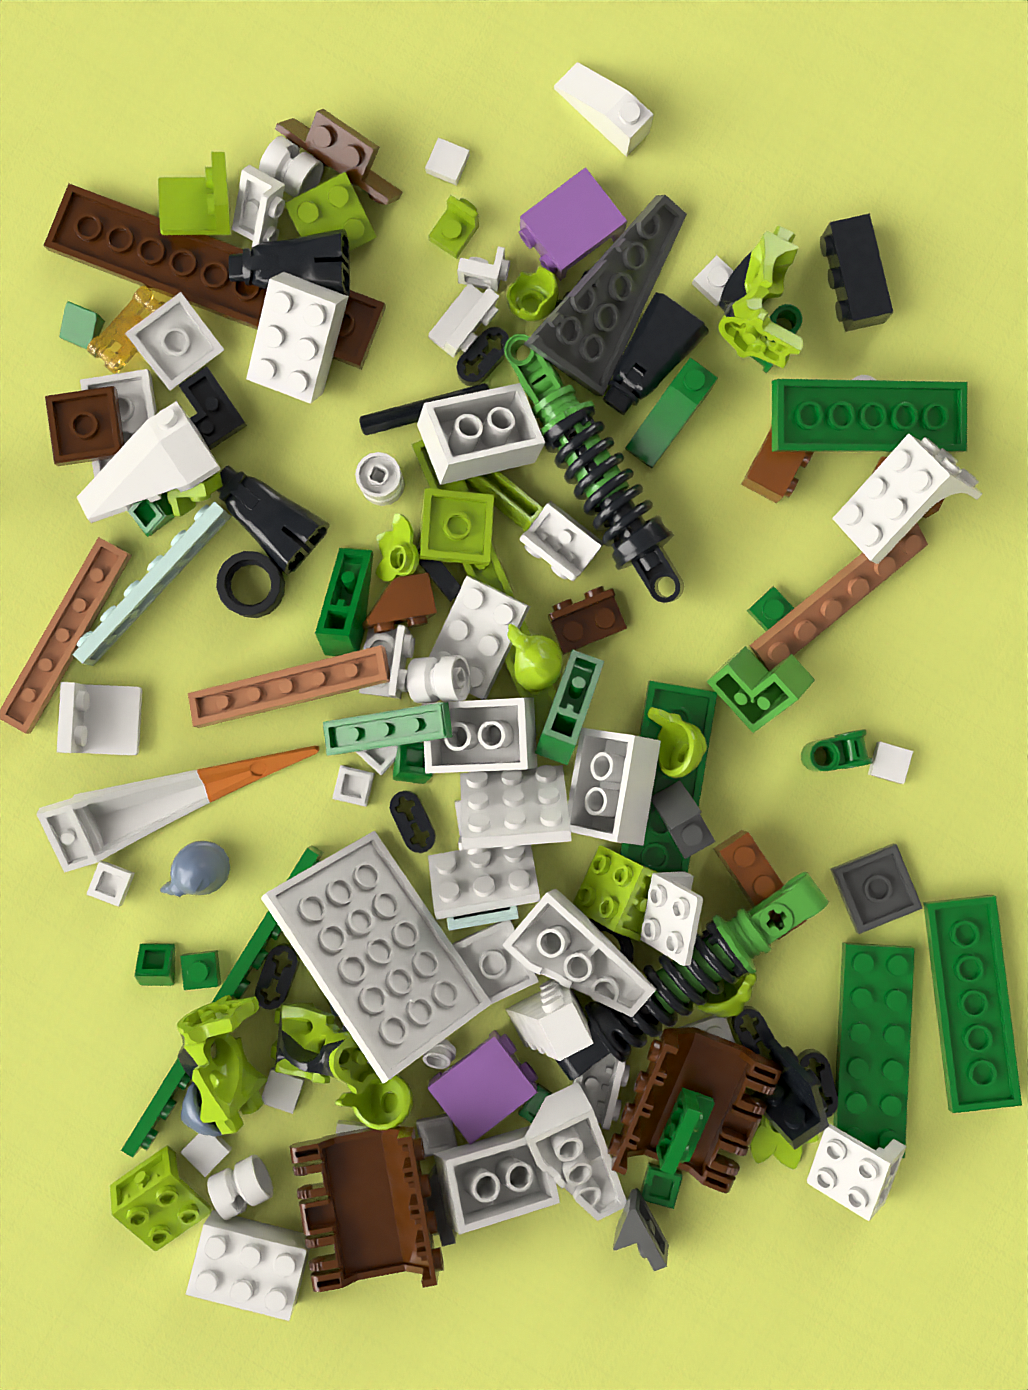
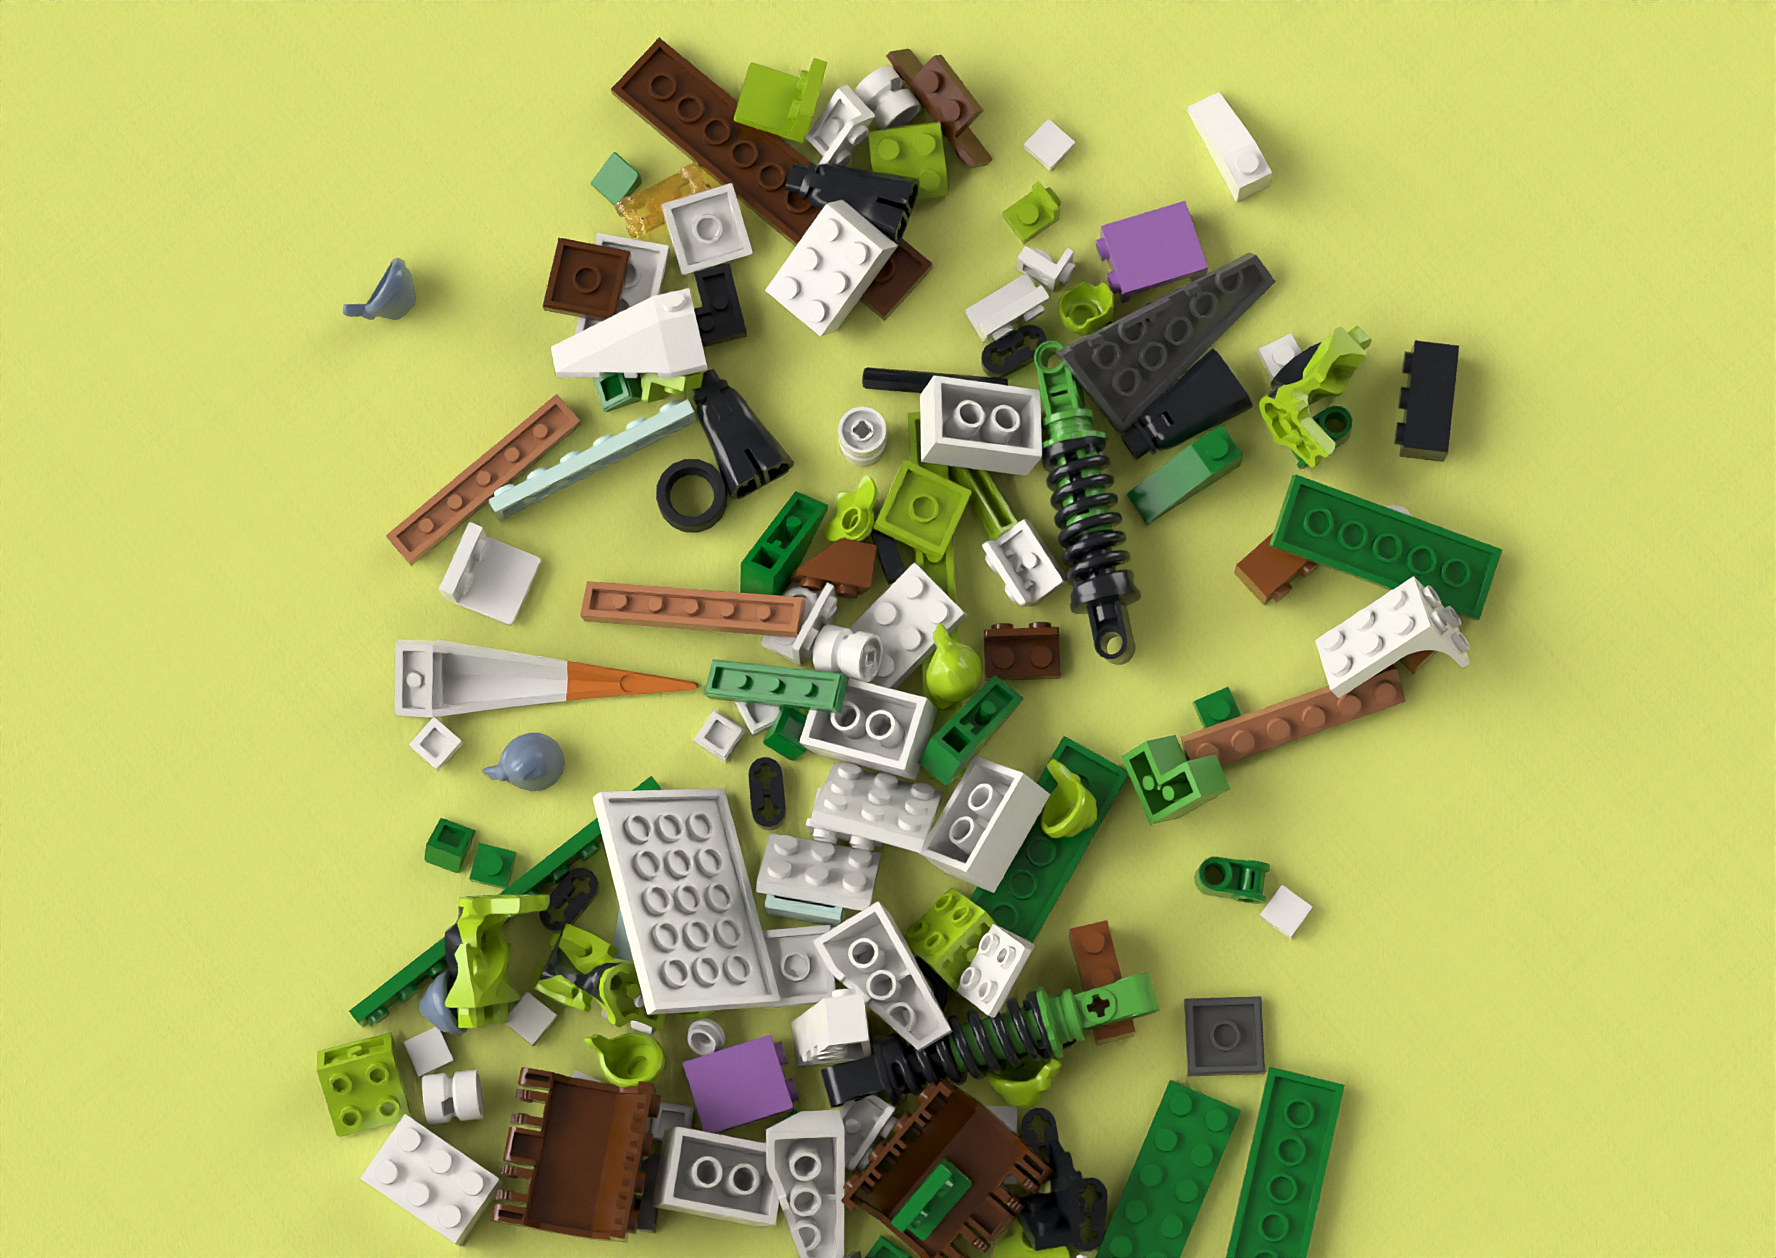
camera: 25 degrees right, 10 degrees down
(682, 819) = (1045, 886): dark grey slope -> none

